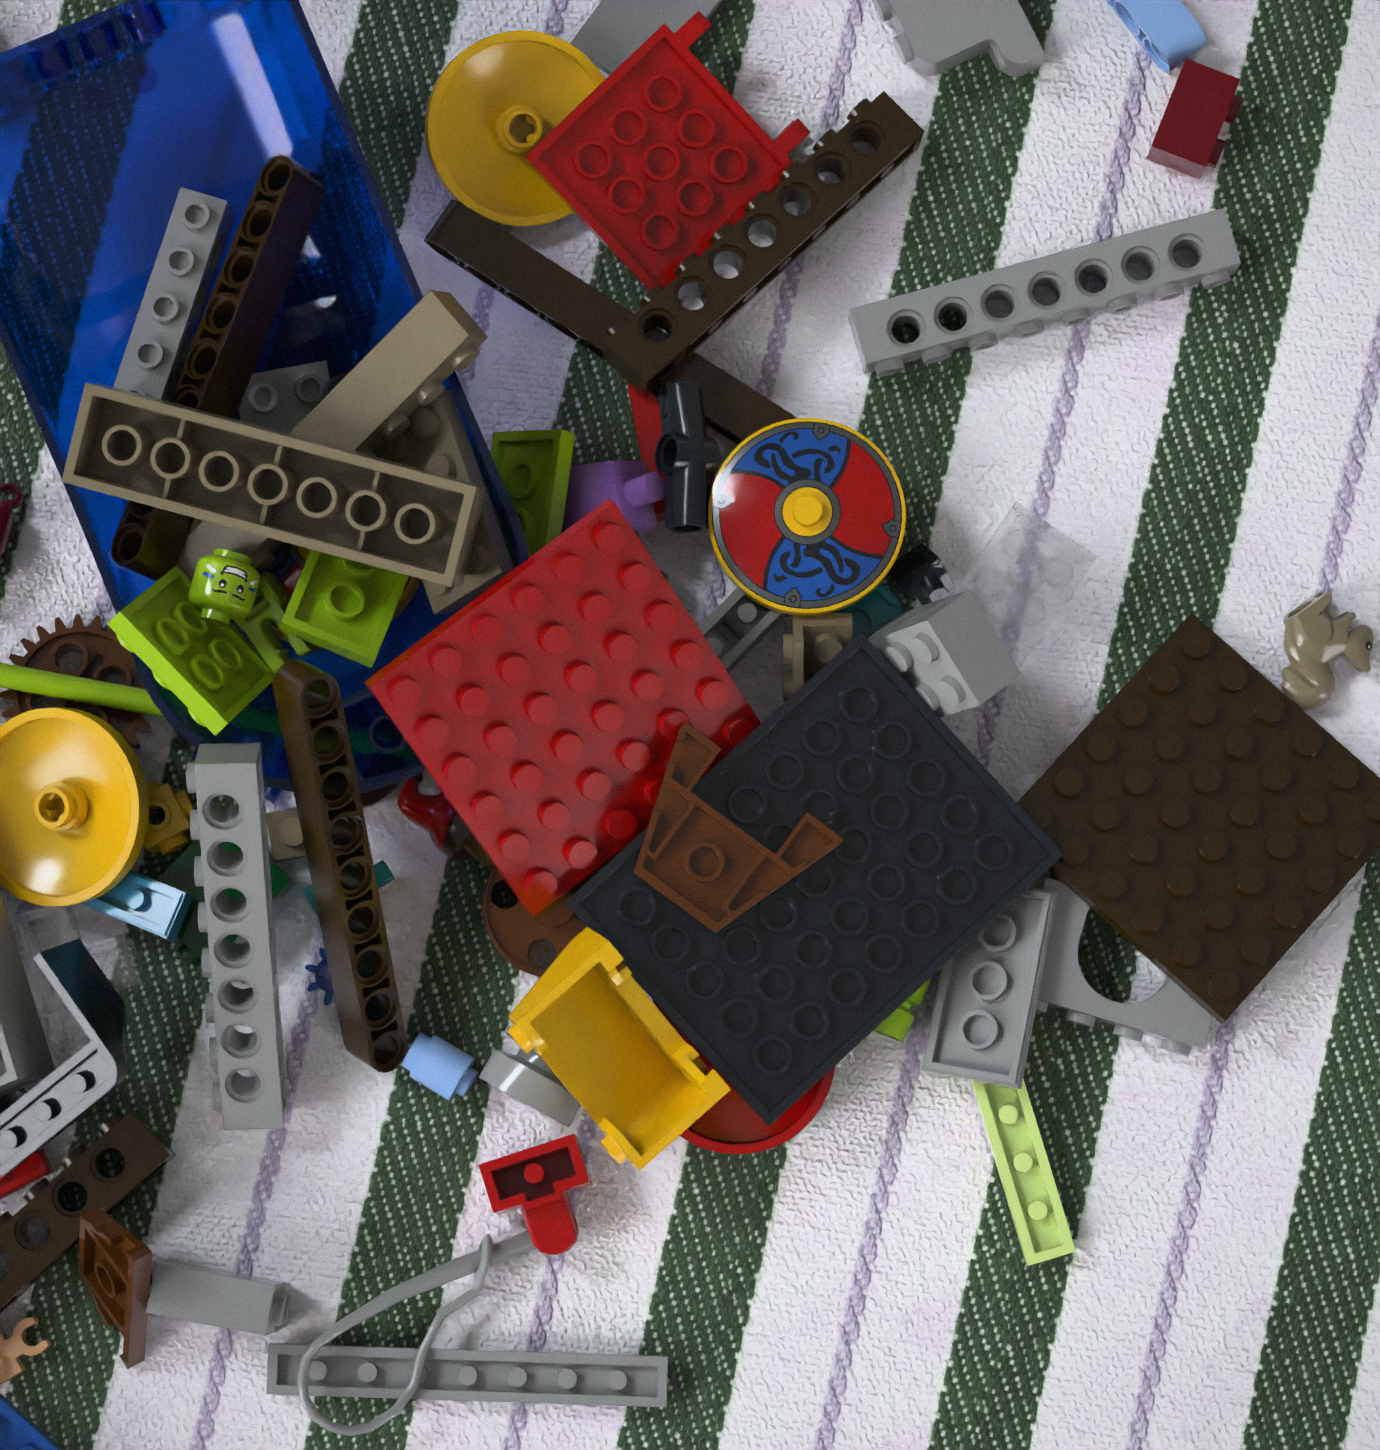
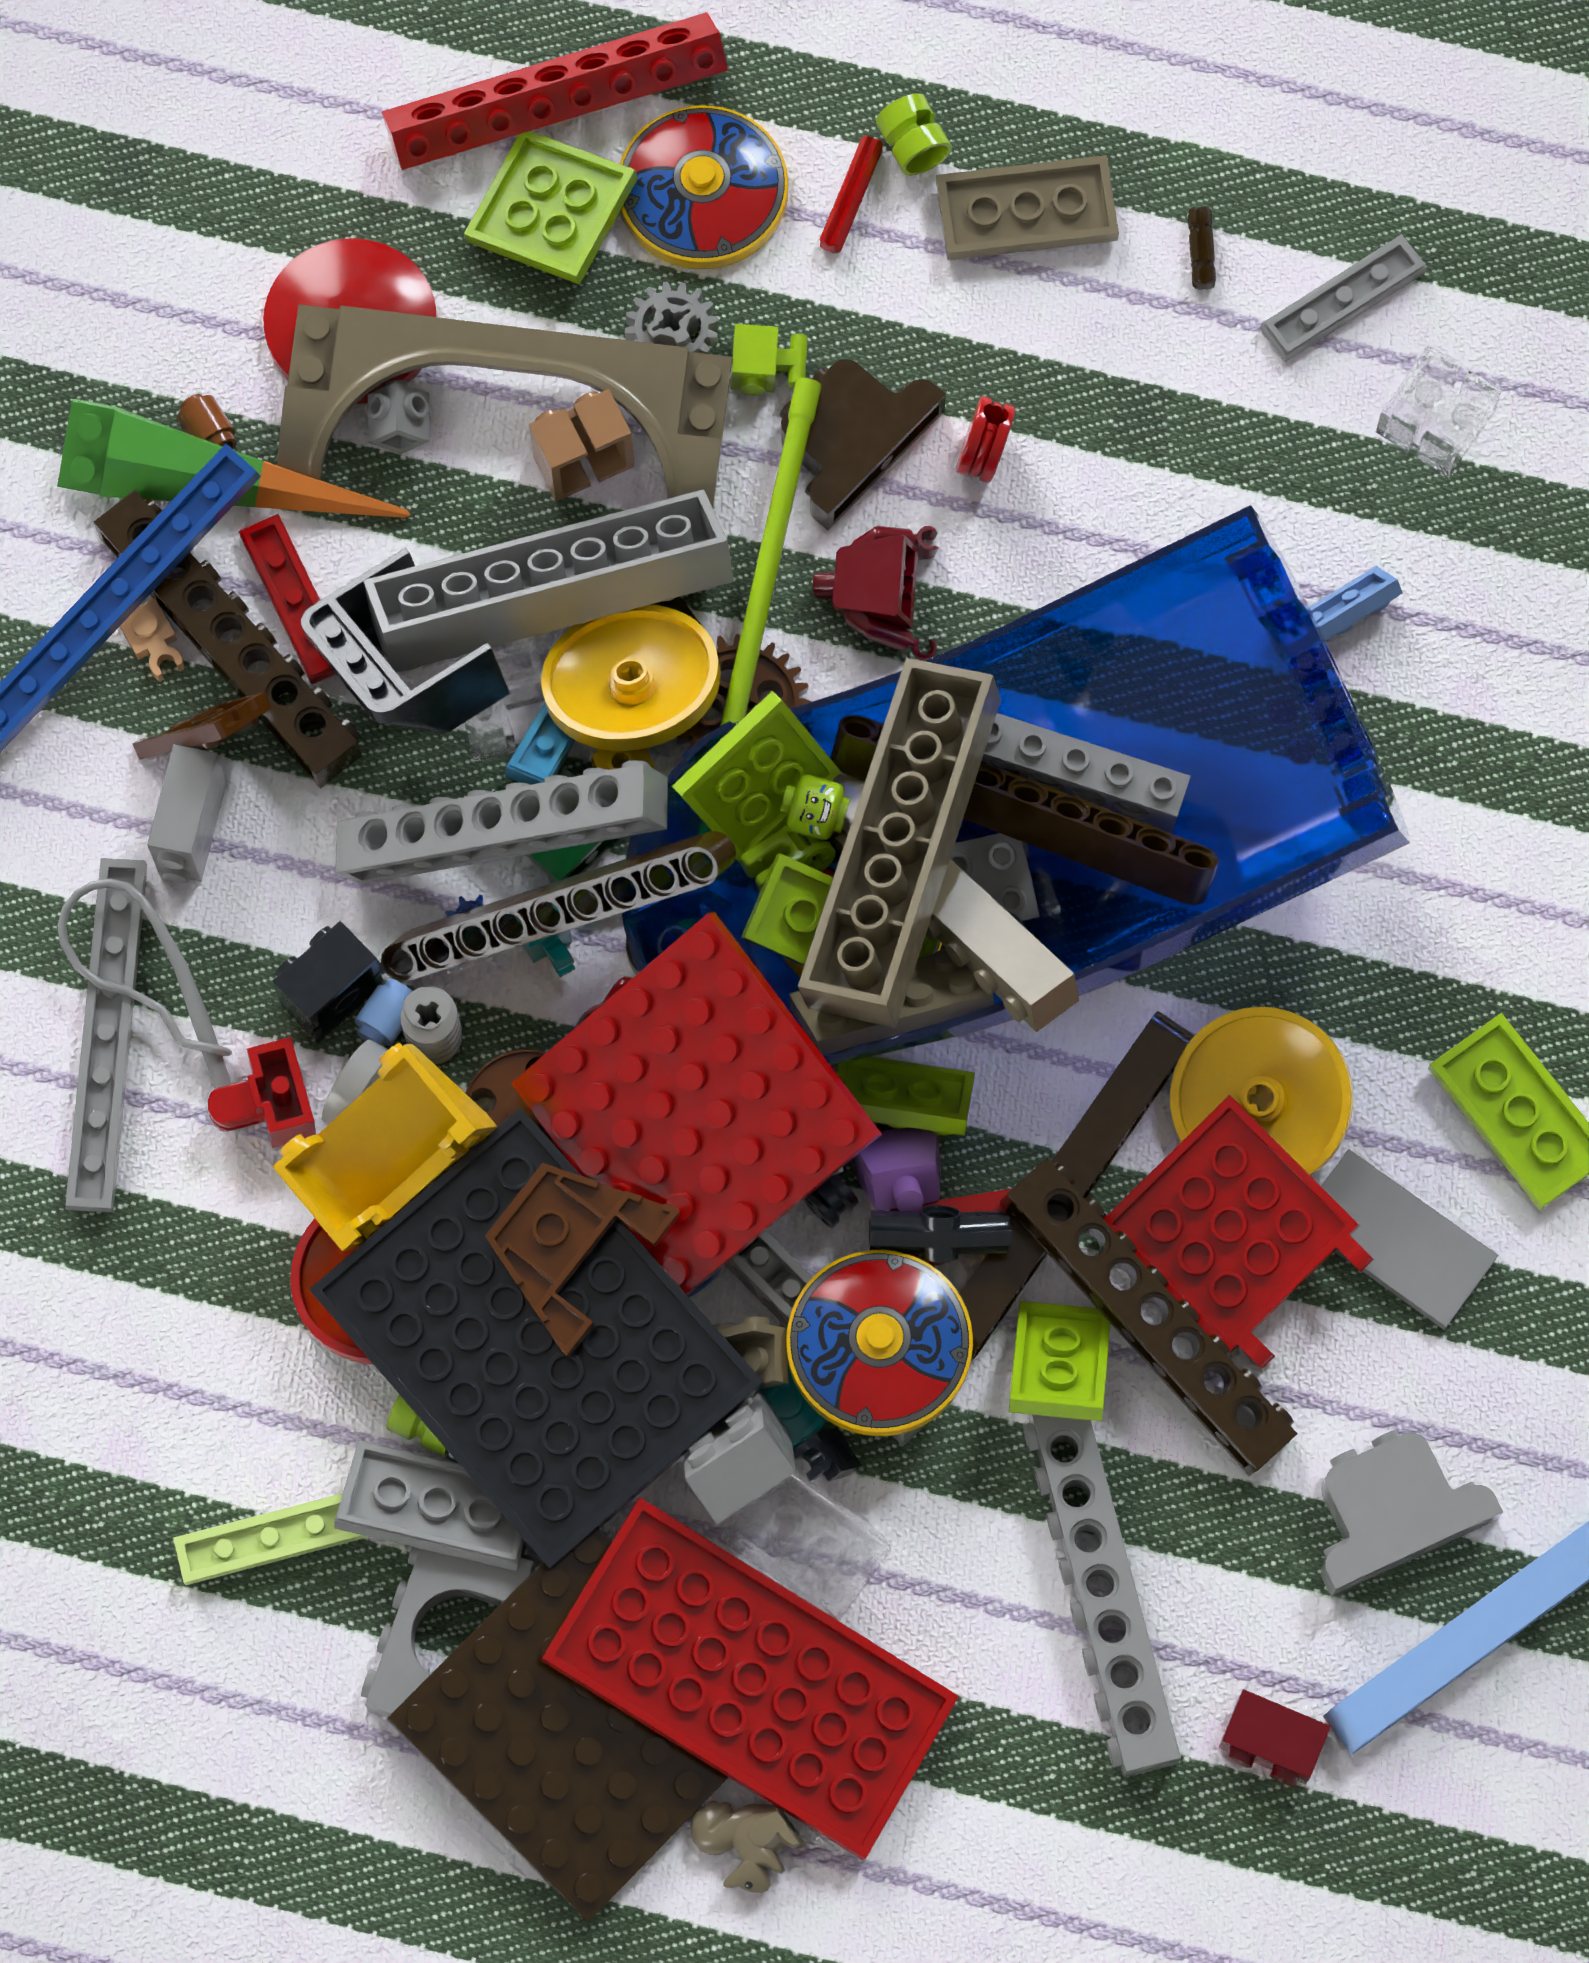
camera: 90 degrees right, 10 degrees down
(409, 1129) = (328, 980): none -> black brick
(456, 993) = (432, 1023): none -> light grey piece
(814, 333) = (1059, 1361): none -> lime plate
(1161, 648) = (750, 1678): none -> red plate

